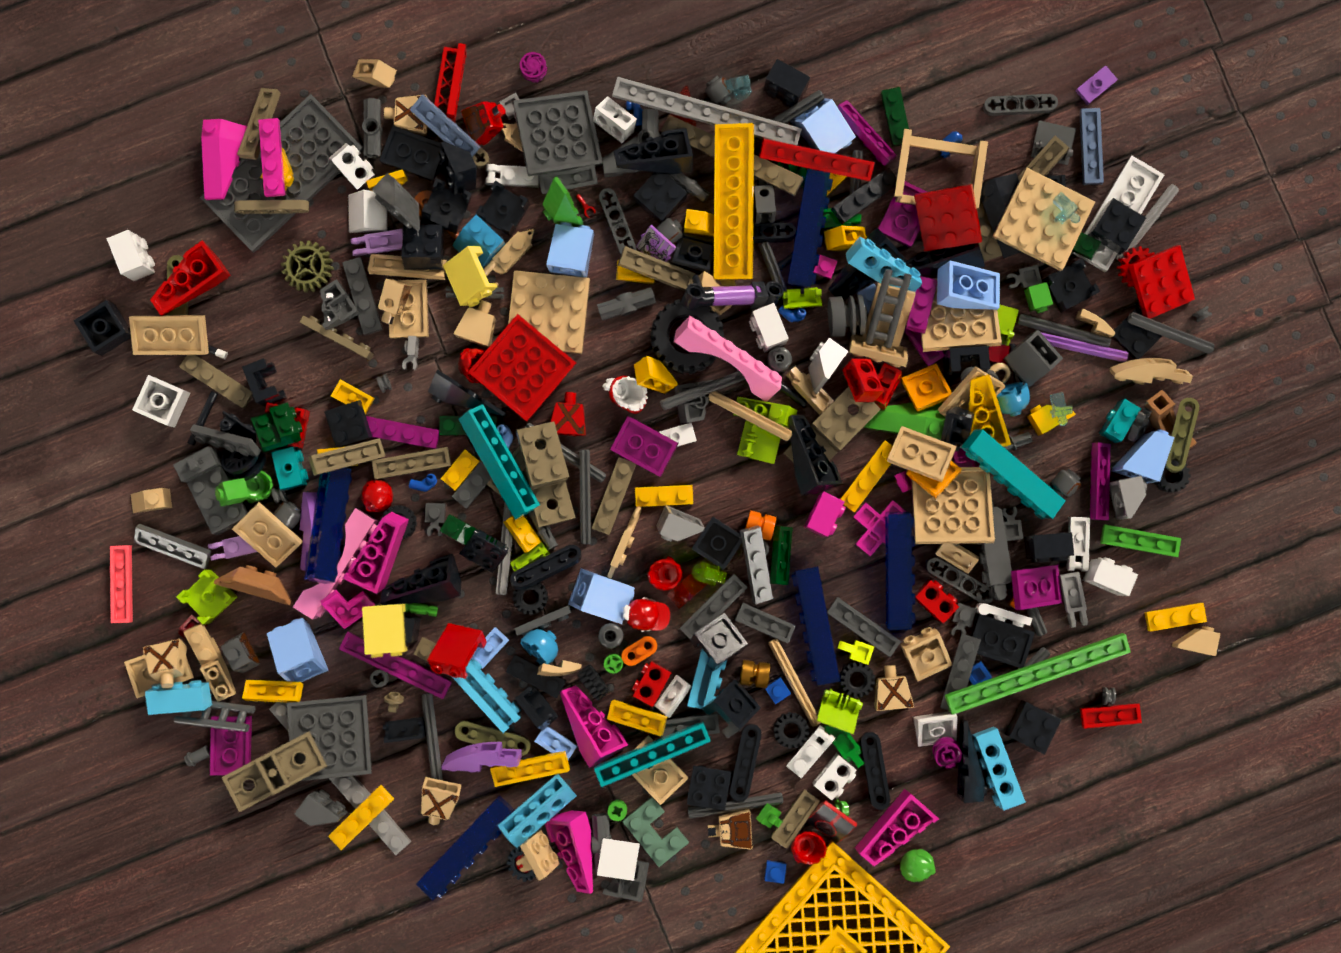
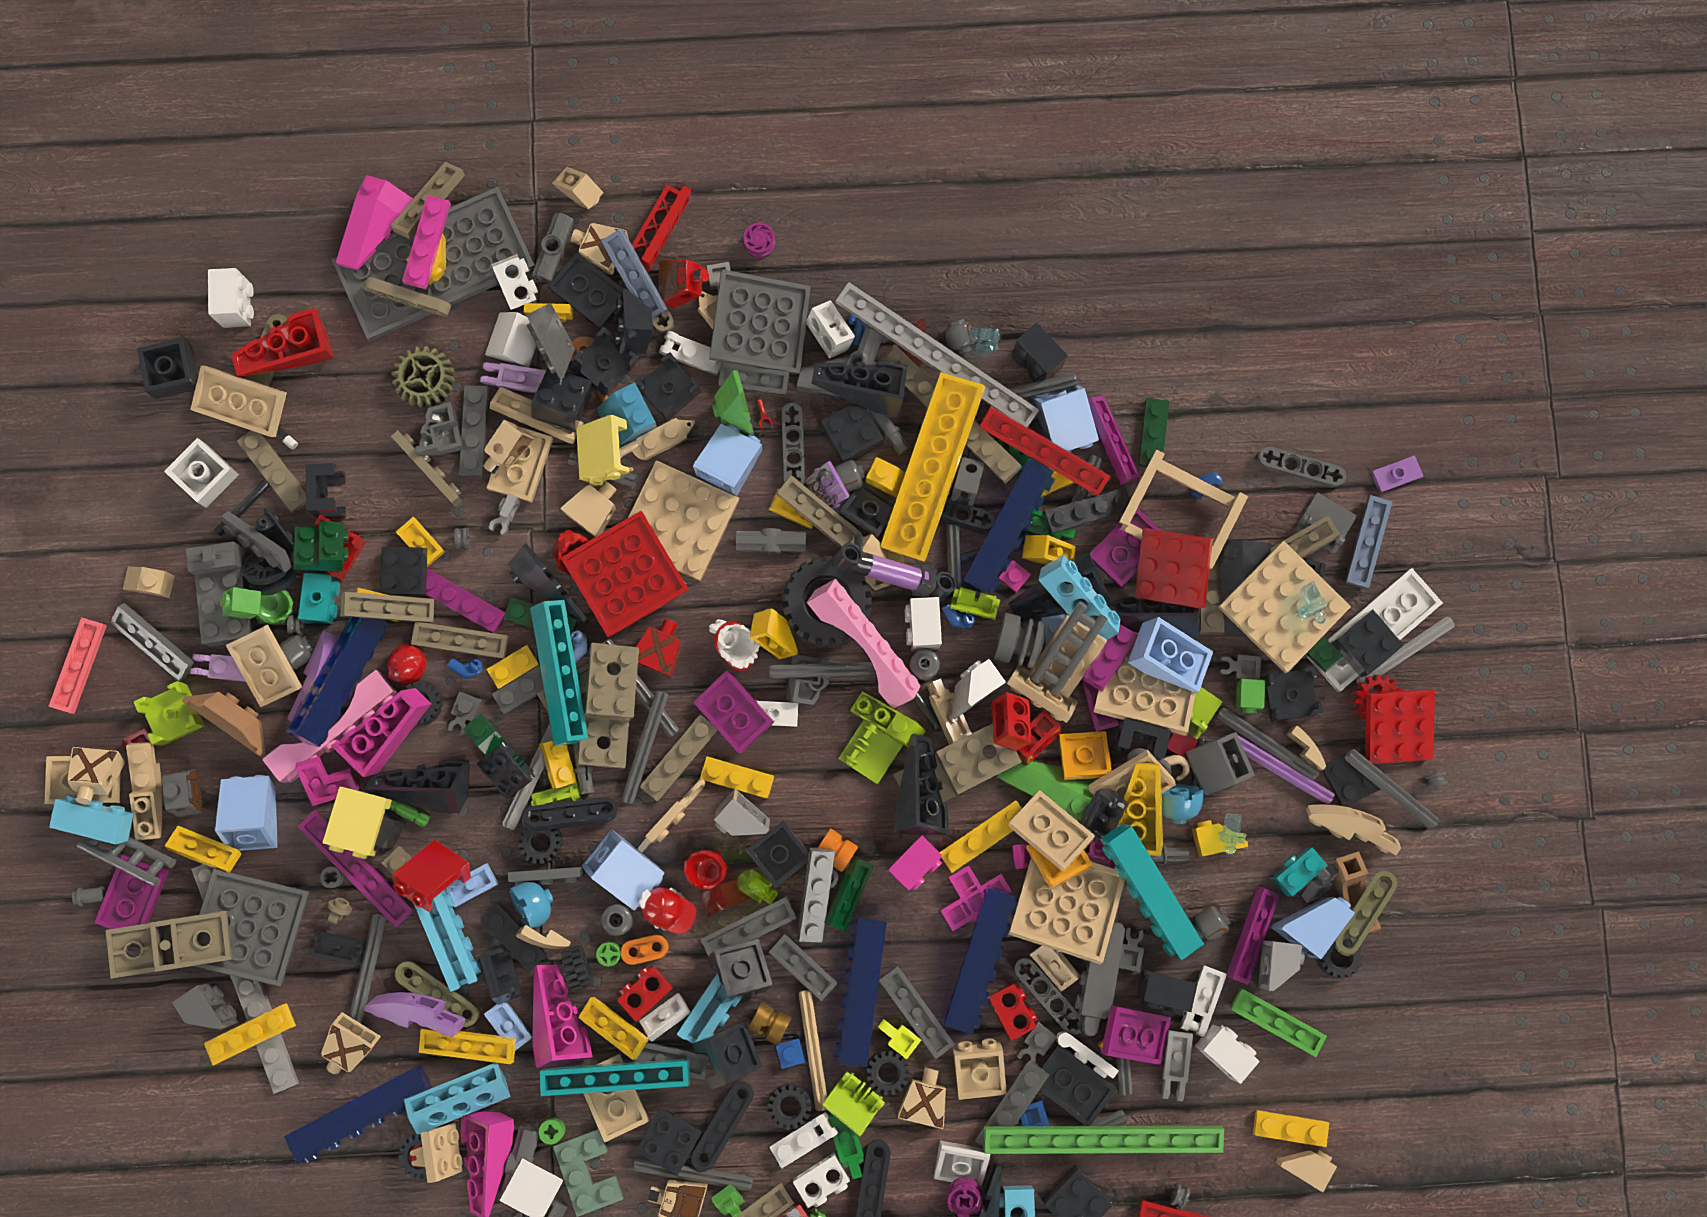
camera: 15 degrees right, 5 degrees down
(750, 415) = (868, 718): tan axle -> none

